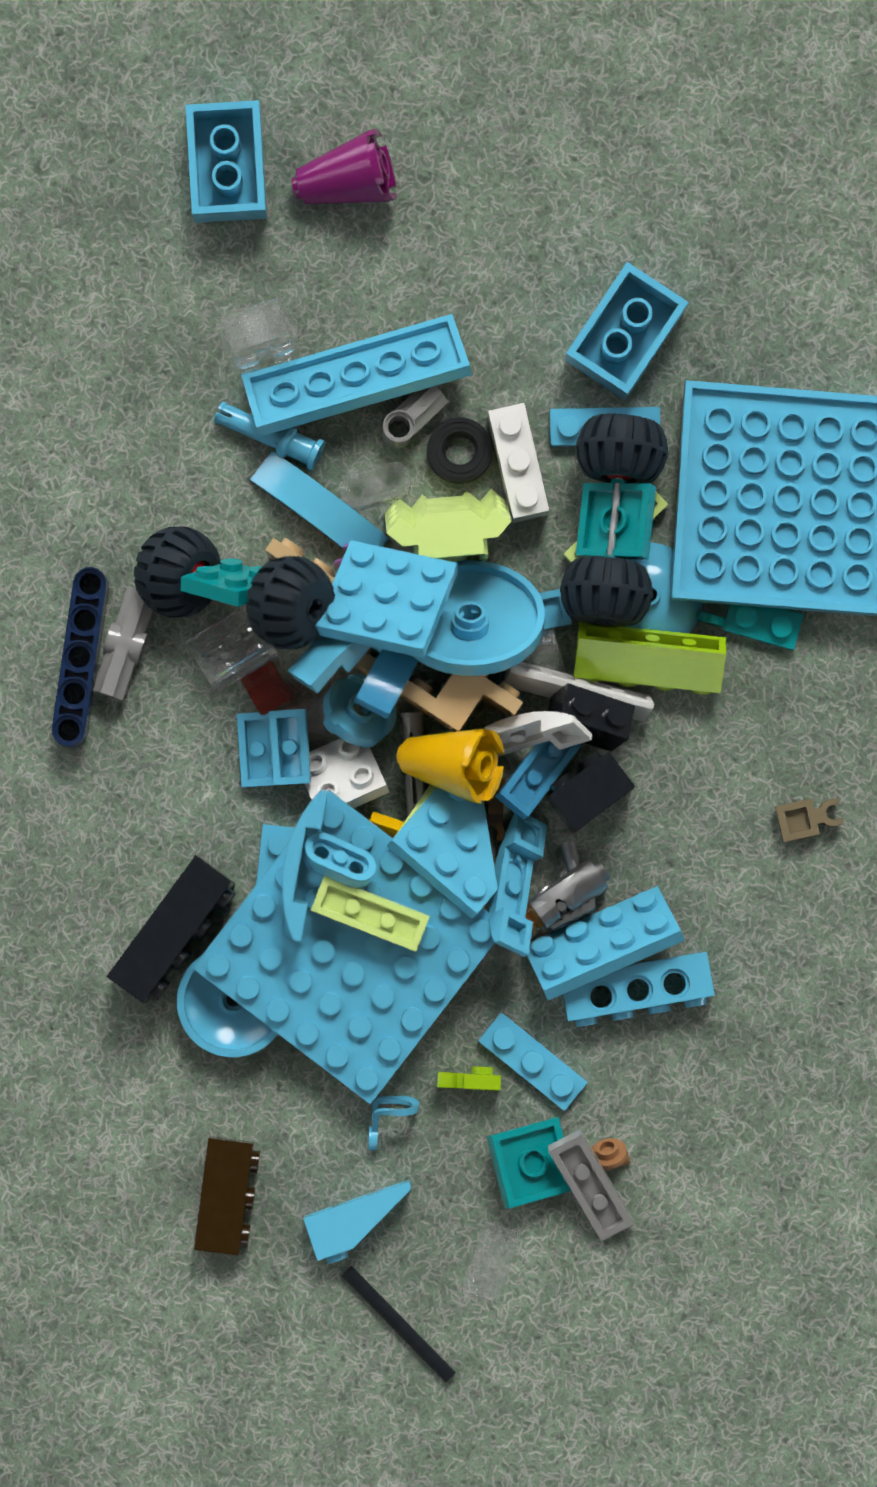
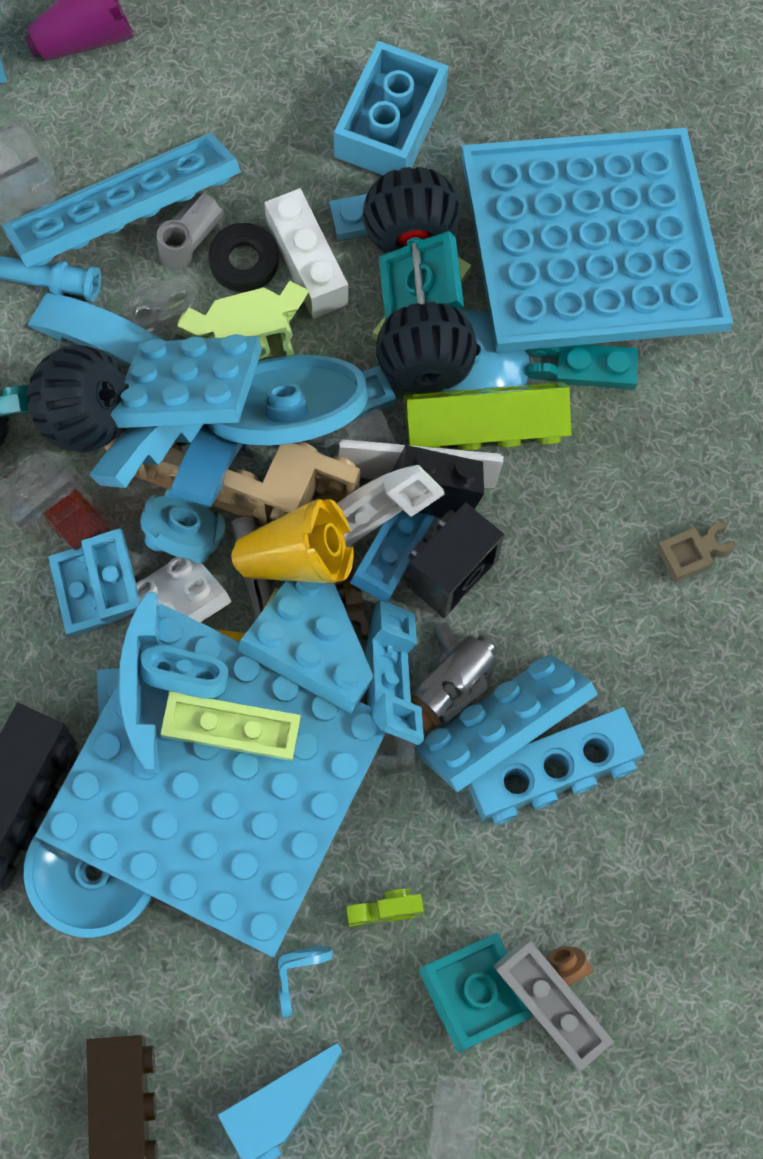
camera: 10 degrees left, 15 degrees down
(532, 1061) = (453, 876): medium azure plate -> none

